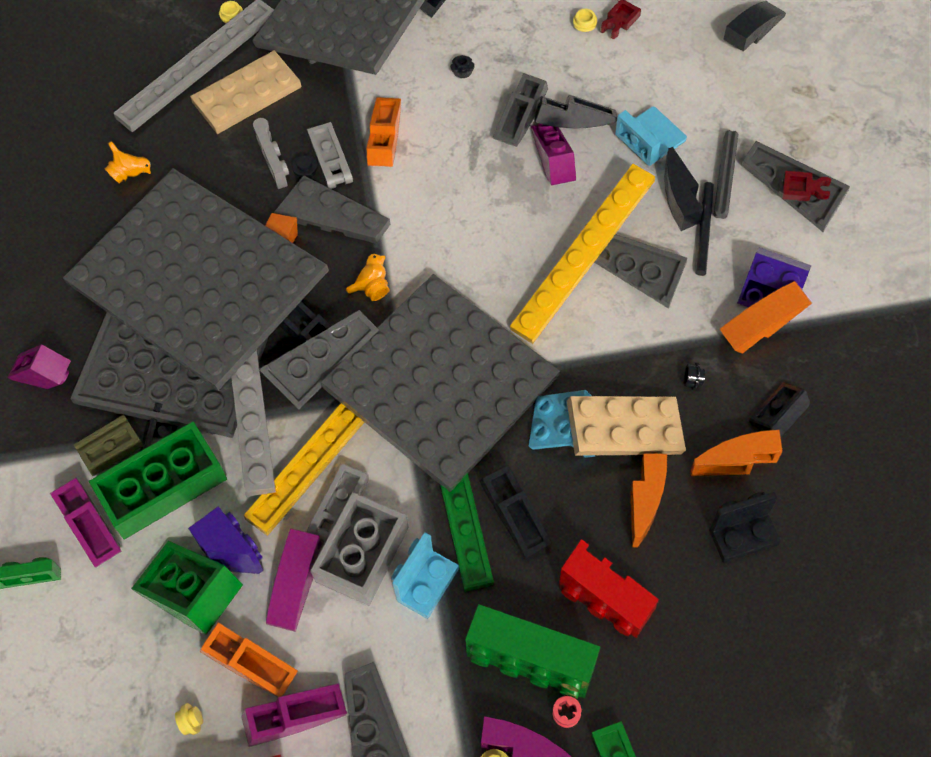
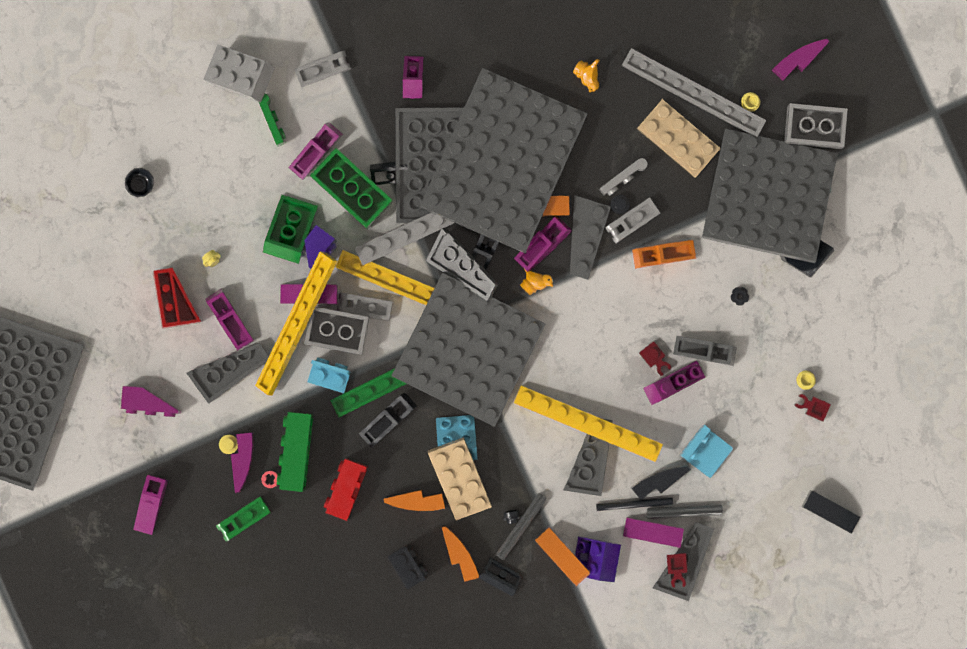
camera: 75 degrees right, 25 degrees up
(108, 445) = (370, 144): olive plate -> none
(248, 660) = (253, 282): orange slope -> none
(315, 242) = (543, 243): none -> magenta slope
(331, 600) = (296, 323): none -> yellow plate
(512, 170) = (653, 356): none -> dark red plate
(573, 113) = (709, 391): black slope -> none
(712, 369) = (521, 526): none -> dark grey axle
(749, 208) = (653, 532): none -> magenta slope

